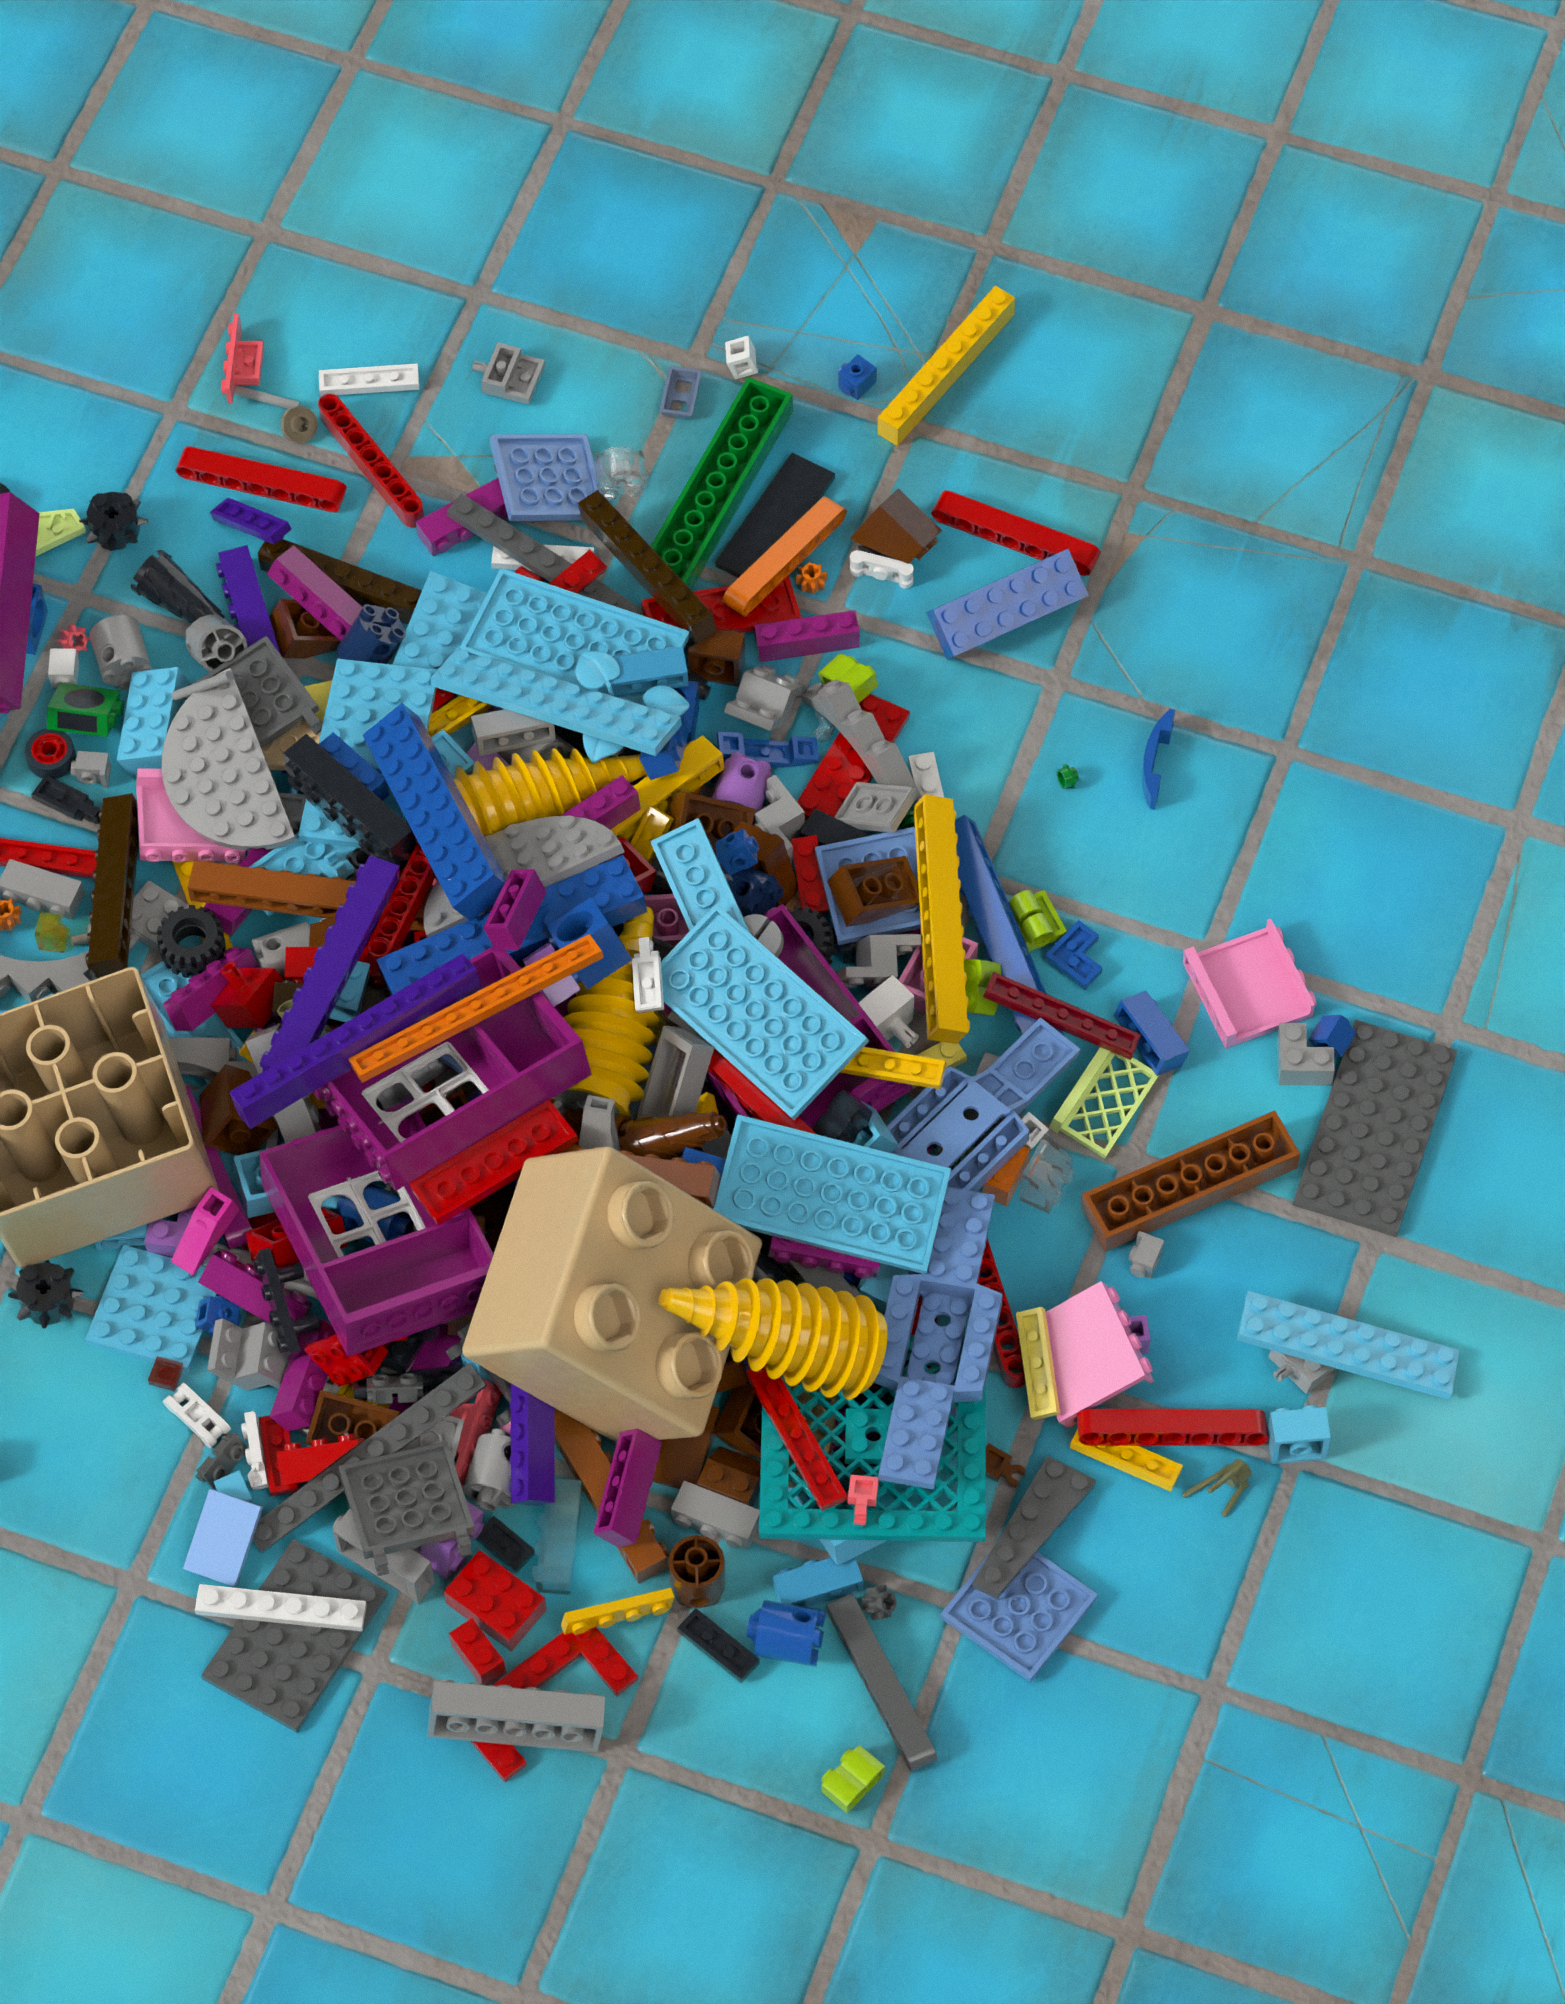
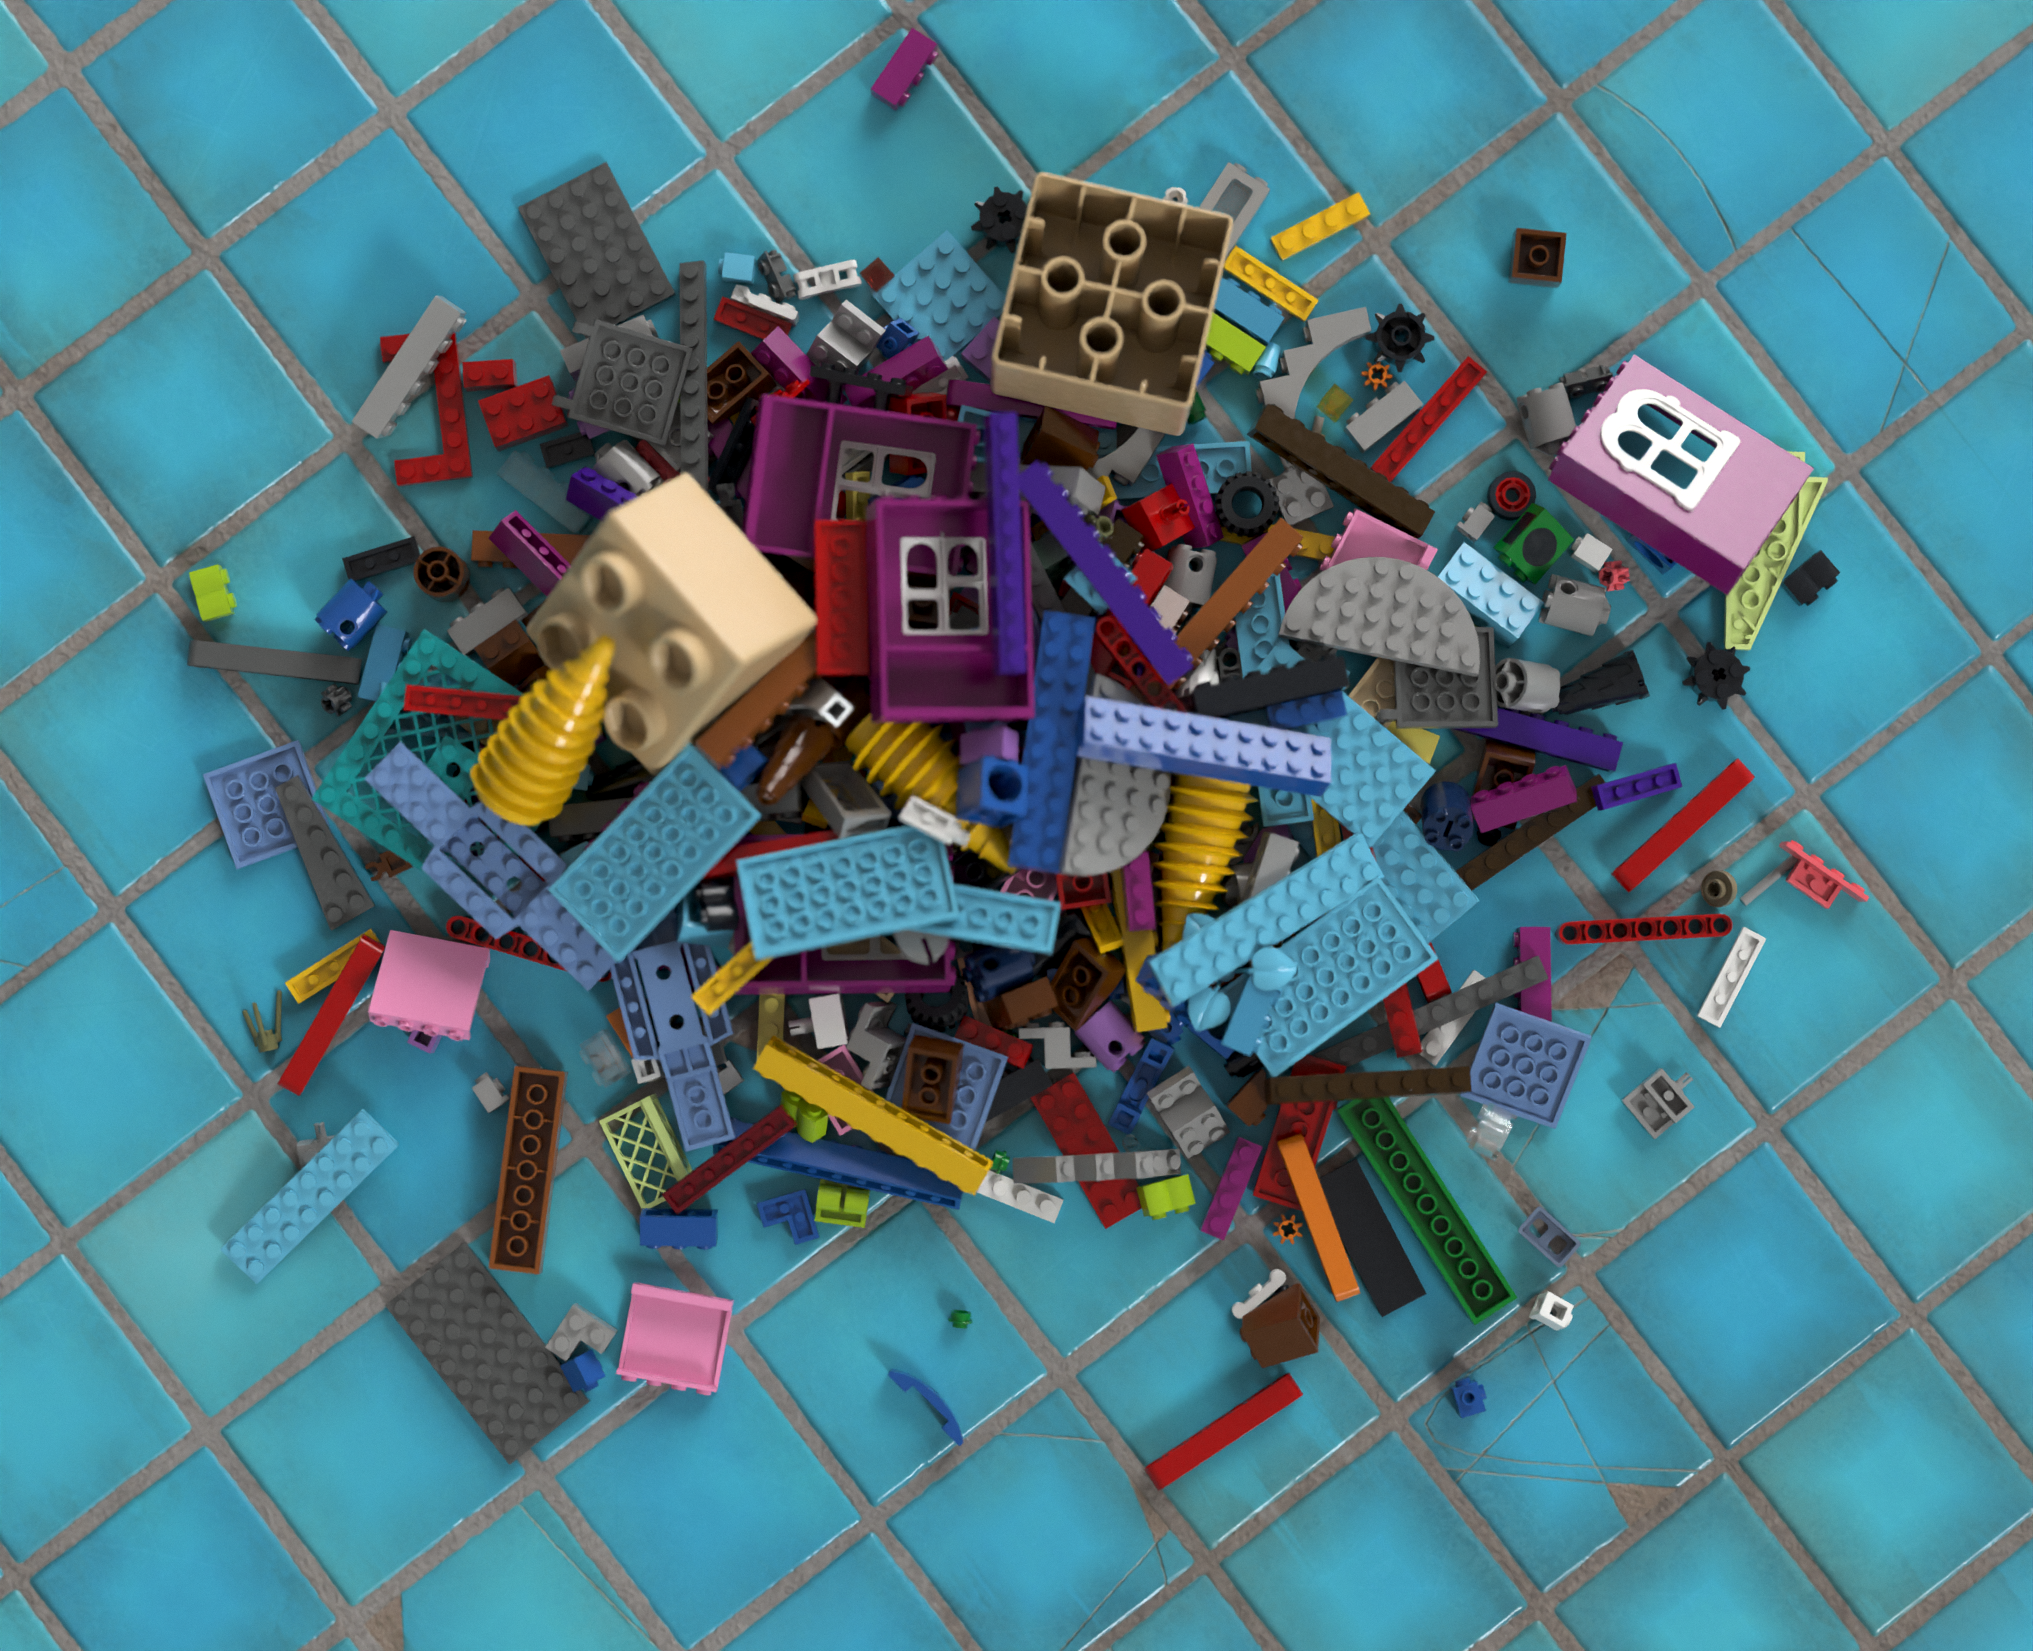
camera: 115 degrees right, 25 degrees up
(66, 800) = (1459, 484): black hinge -> none
(202, 685) = (1475, 641): light grey bar -> none
(204, 1230) = (965, 363): dark pink slope -> none
(223, 1537) = (704, 238): light blue tile -> none
(280, 1607) = (618, 248): white plate -> none
(308, 1462) = (717, 335): red slope -> none
(335, 865) = (1233, 653): medium azure tile -> none
(381, 1388) = (733, 430): dark grey hinge -> none
(475, 1008) = (972, 655): orange plate -> none
(515, 909) = (1050, 744): magenta brick -> none
(624, 1609) = (453, 486): yellow plate -> none
(737, 851) = (1020, 976): blue brick -> none
(862, 1493) = (401, 725): coral plate -> none
(876, 806) = (1019, 1133): light grey tile -> none
(946, 365) = (1430, 1483): yellow brick -> none
(1007, 603) = (1151, 1374): brick -> none
(1038, 1363) = (443, 942): light yellow plate -> none
(1298, 1435) = (260, 1106): medium azure brick -> none

